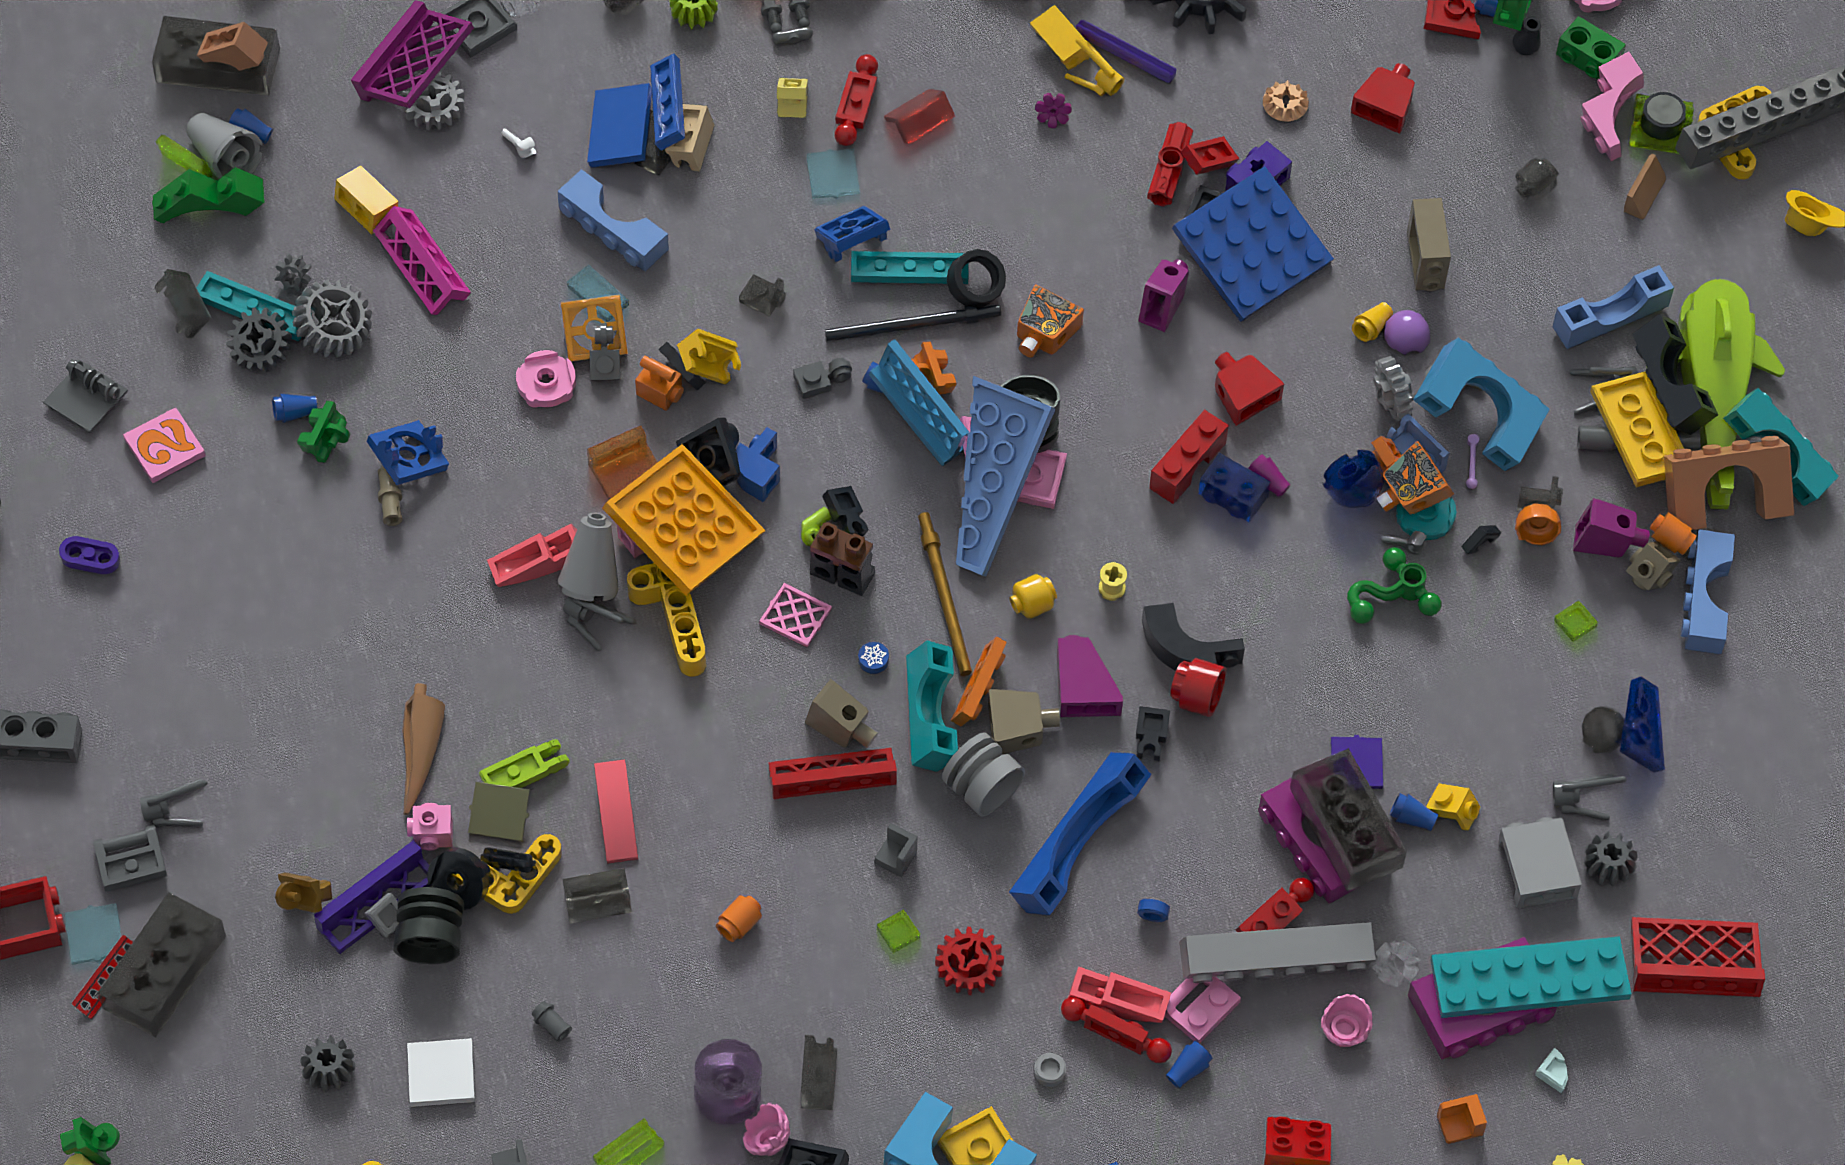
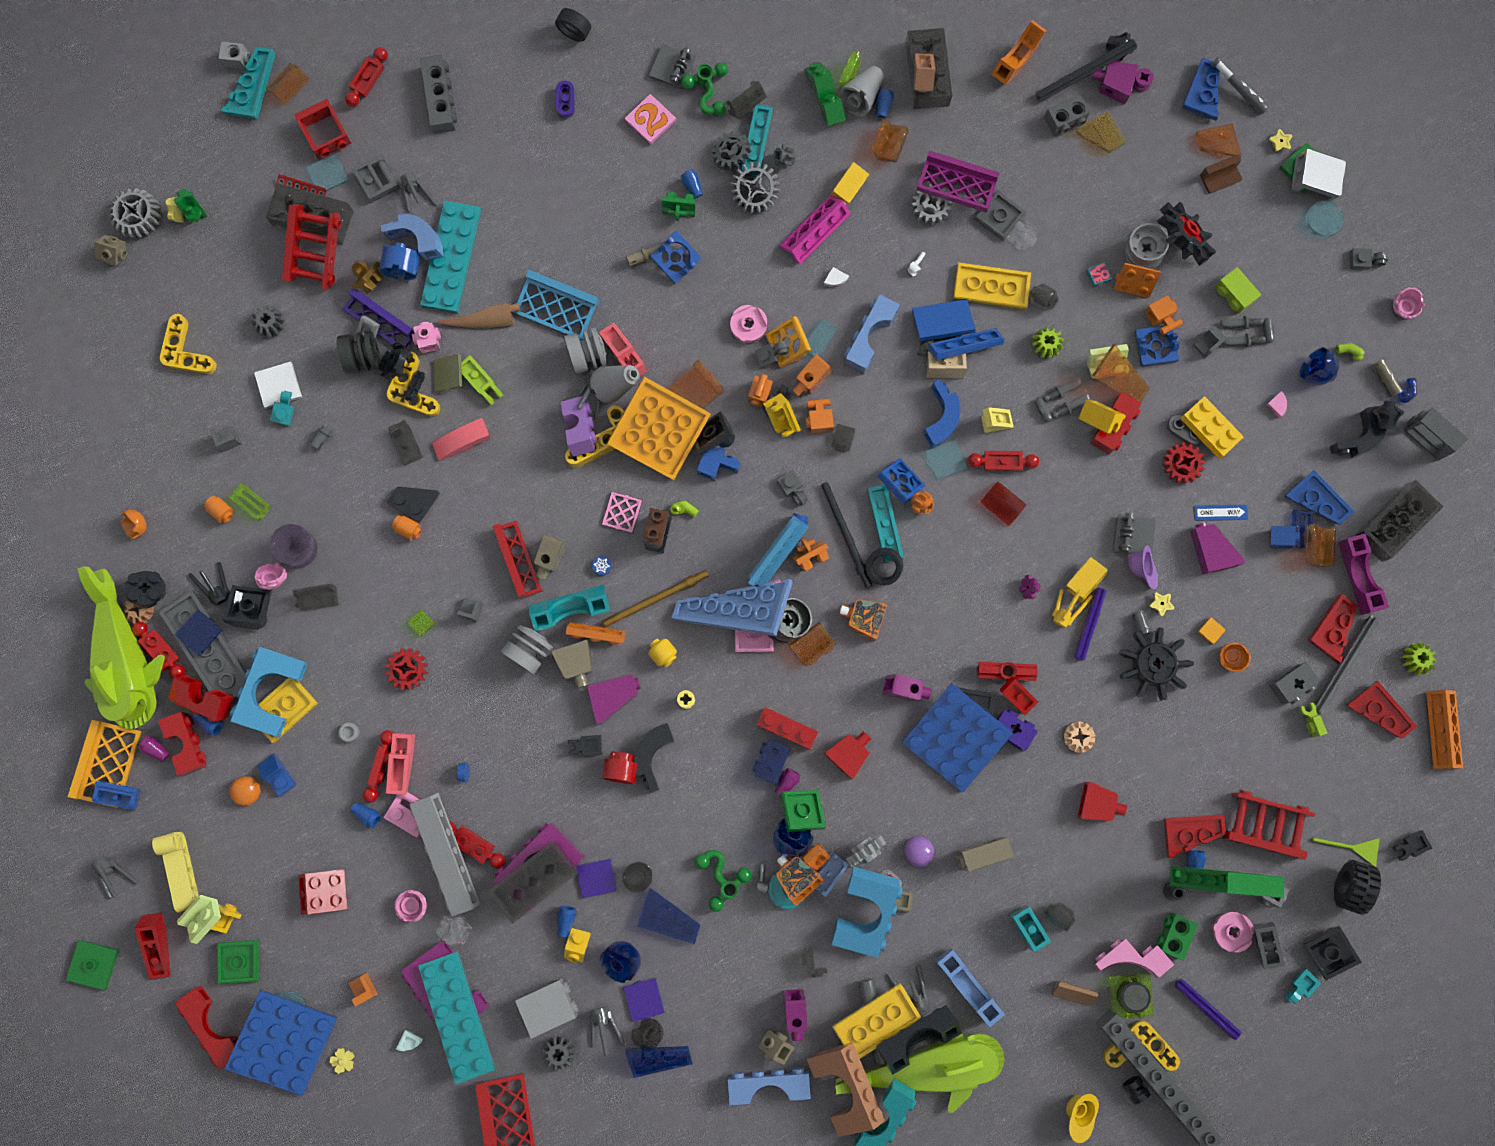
camera: 75 degrees right, 20 degrees up
(124, 352) = (688, 81): none -> green piece
(200, 974) = (293, 252): none -> red fence
(247, 797) = (410, 225): none -> medium blue arch
(292, 837) = (399, 261): none -> blue brick
(301, 774) = (448, 273): none -> teal plate
(316, 129) = (889, 141): none -> clear orange bracket
(412, 618) = (563, 290): none -> dark azure fence
(490, 1069) = (282, 411): none -> teal plate
(507, 251) = (835, 278): none -> white tile
(526, 599) = (585, 350): none -> light grey wheel
(583, 56) = (992, 286): none -> yellow tile
(657, 305) = (818, 370): none -> orange torso
(671, 627) = (580, 438): none -> medium lavender arch
(696, 906) = (413, 501): none -> black wing
(726, 315) = (820, 419): none -> orange brick
(770, 150) = (942, 430): none -> blue arch
(845, 508) = (700, 522): black plate -> none
(893, 210) = (922, 503): none -> orange gear
(1047, 875) = (468, 702): blue arch -> none
(1077, 398) = (812, 645): none -> clear orange bracket
(1315, 459) = (802, 810): none -> green plate
(1366, 699) = (637, 877): none -> clear smoke hair
(1370, 323) = (918, 826): yellow cone -> none
(1438, 676) = (667, 919): none -> clear blue wing
(1472, 441) = (849, 910): lavender hinge -> none
(1479, 536) = (774, 929): black tile -> none
(1490, 741) = (621, 961): none -> clear blue cylinder
(1538, 524) = (791, 964): orange hair -> none
(1545, 215) = (1030, 928): none -> teal brick
(1552, 735) = (644, 999): none -> dark purple piece
(1576, 621) = (729, 1001): clear neon green tile -> none
(1672, 533) = (799, 1056): orange brick -> none
(1696, 40) = (1207, 1009): none -> dark purple axle
(1790, 145) = (1135, 1088): none -> black wheel

